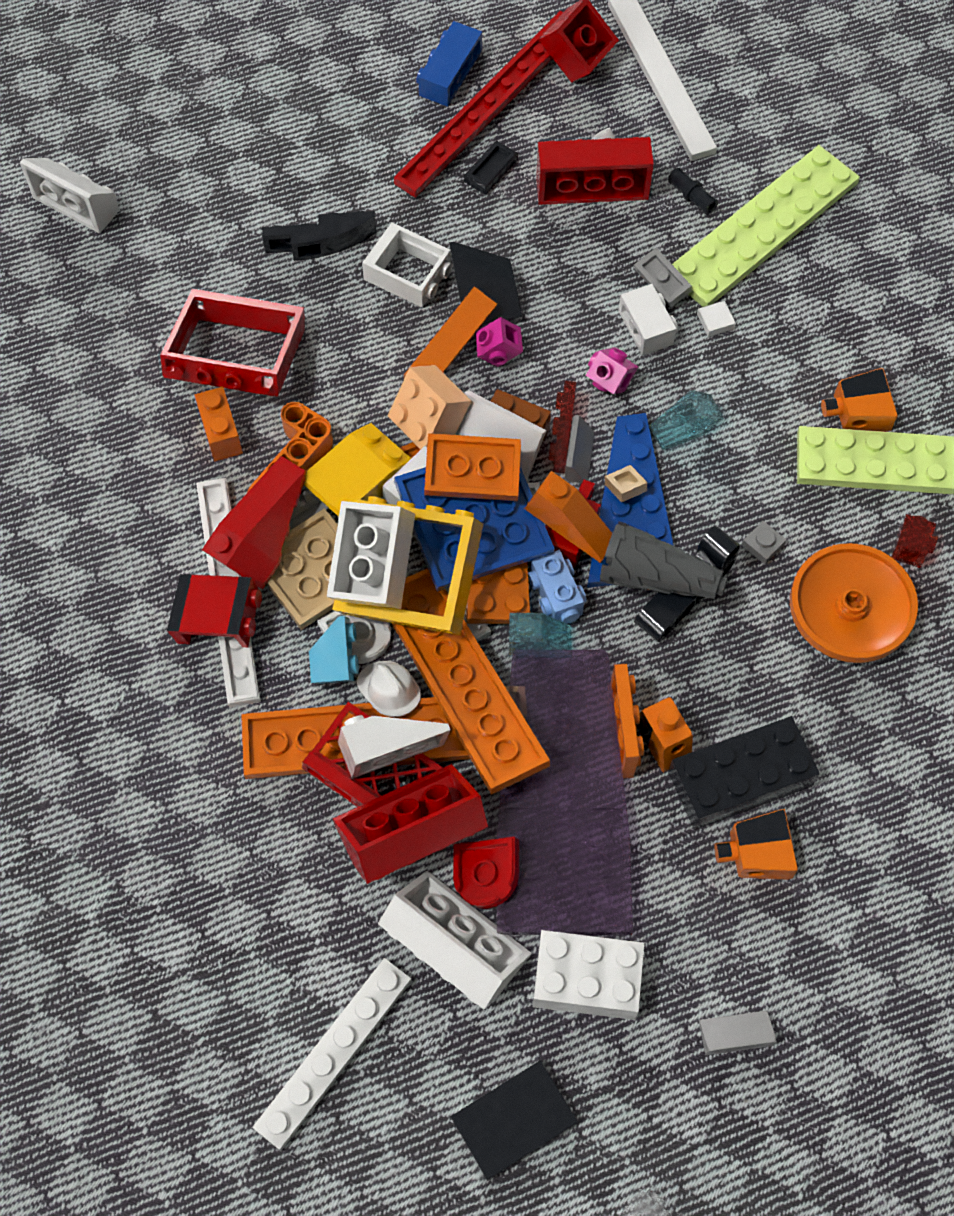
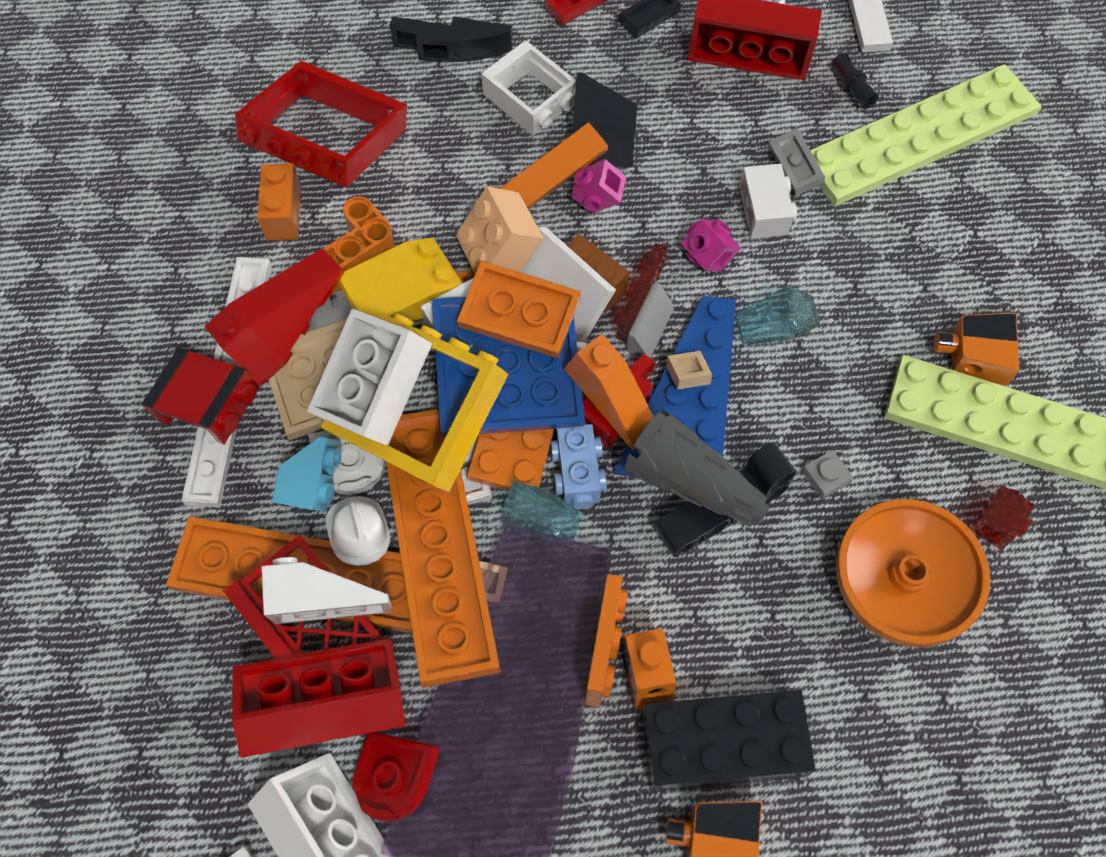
camera: 15 degrees right, 0 degrees up
(716, 318) = (842, 218): white tile -> none

